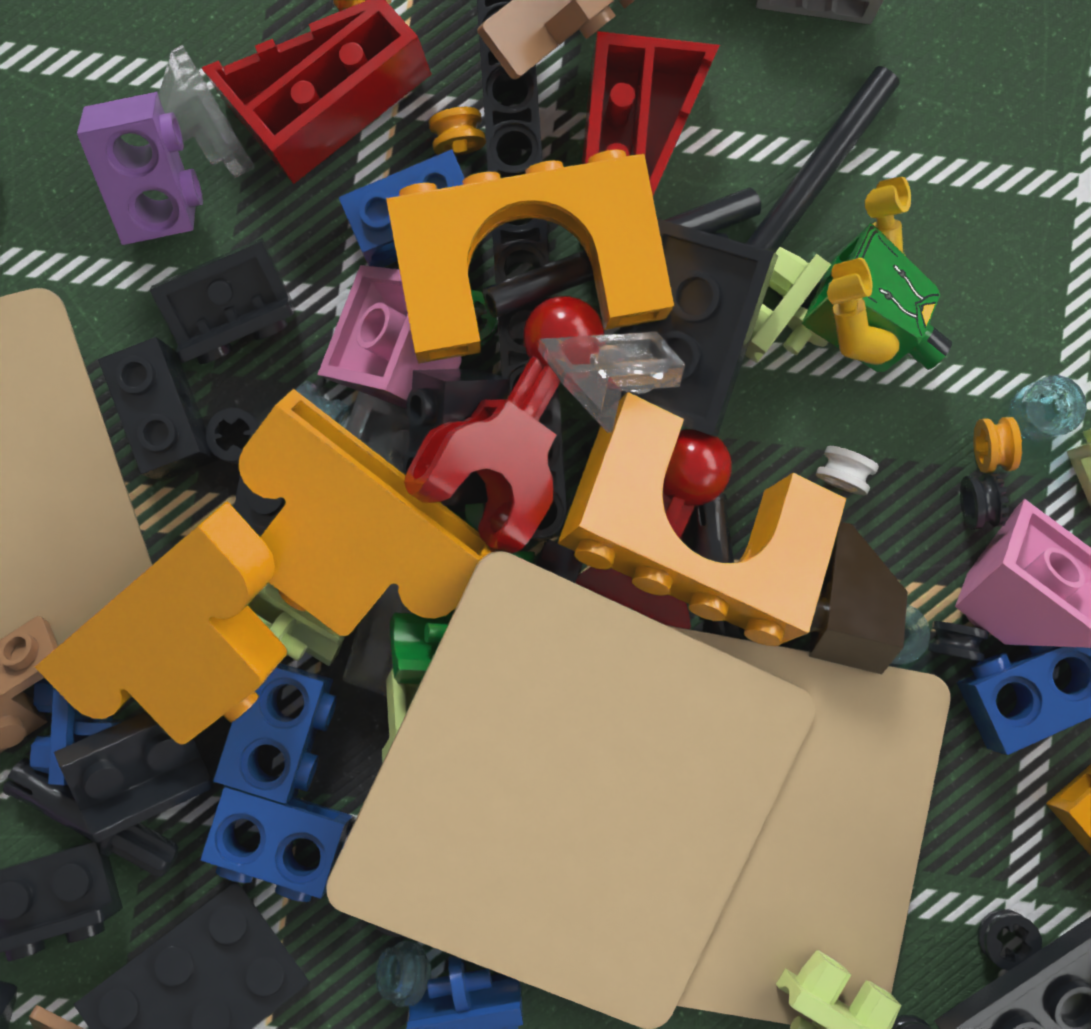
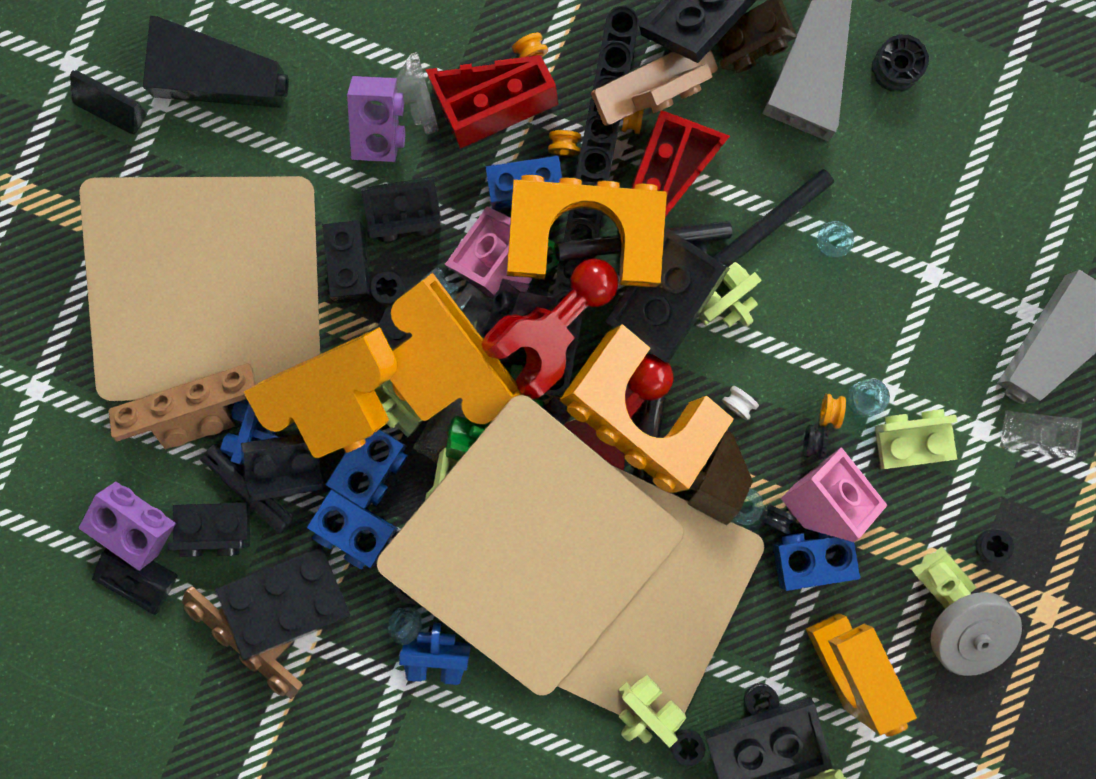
camera: 10 degrees right, 0 degrees up
(556, 67) = (633, 122): none -> light orange bush
(604, 365) = (616, 306): clear slope -> none
(874, 297) = (782, 304): torso -> none
(940, 163) = (845, 235): none -> clear light blue plate

